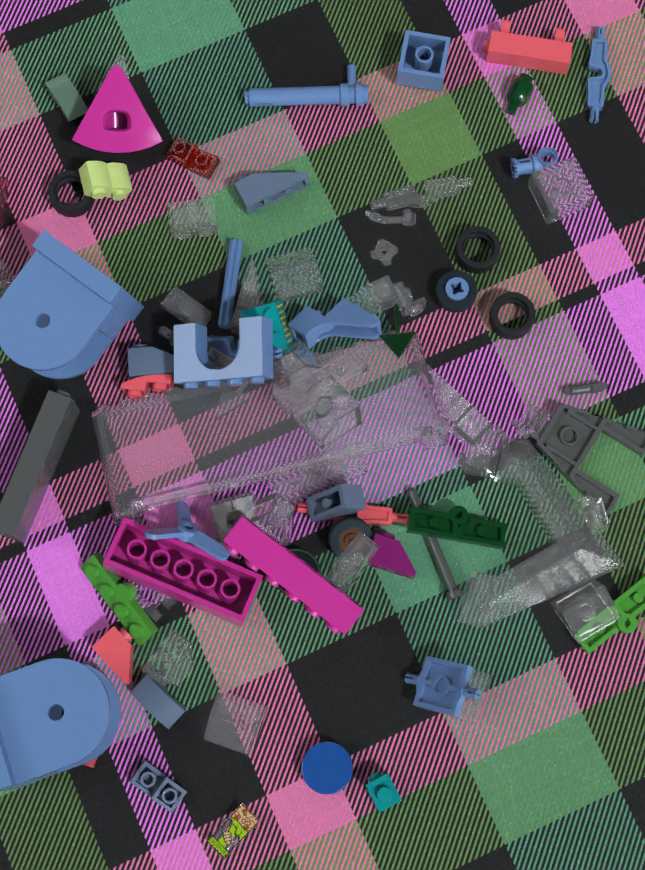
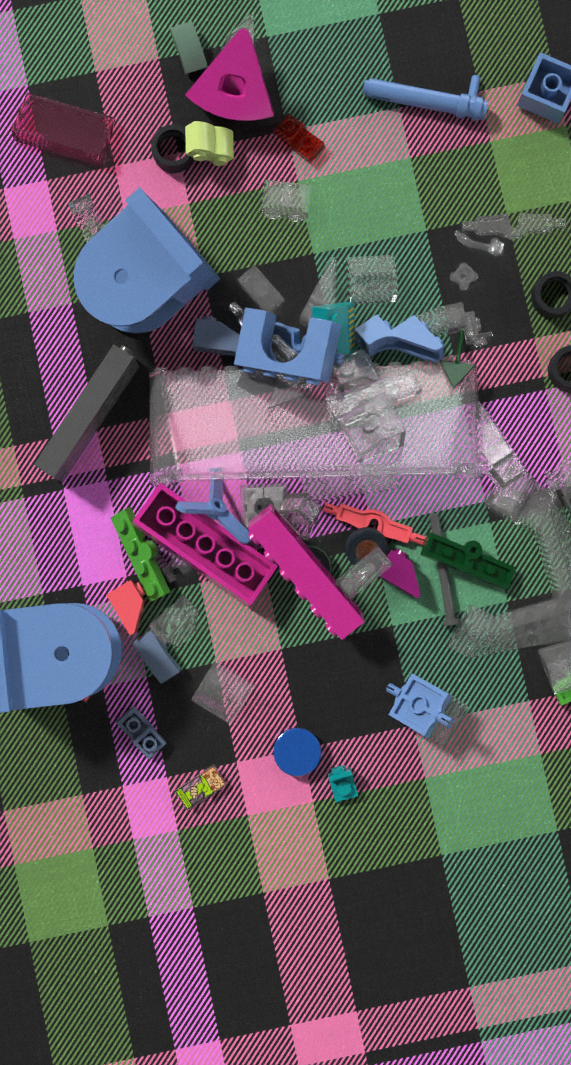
camera: 15 degrees right, 10 degrees up
(140, 386) = (200, 357): coral slope -> none
(230, 283) = (308, 274): medium blue axle -> none
(263, 189) = (363, 186): sand blue slope -> none
(336, 502) = (361, 512): sand blue slope -> none
(454, 300) = (517, 338): black wheel -> none

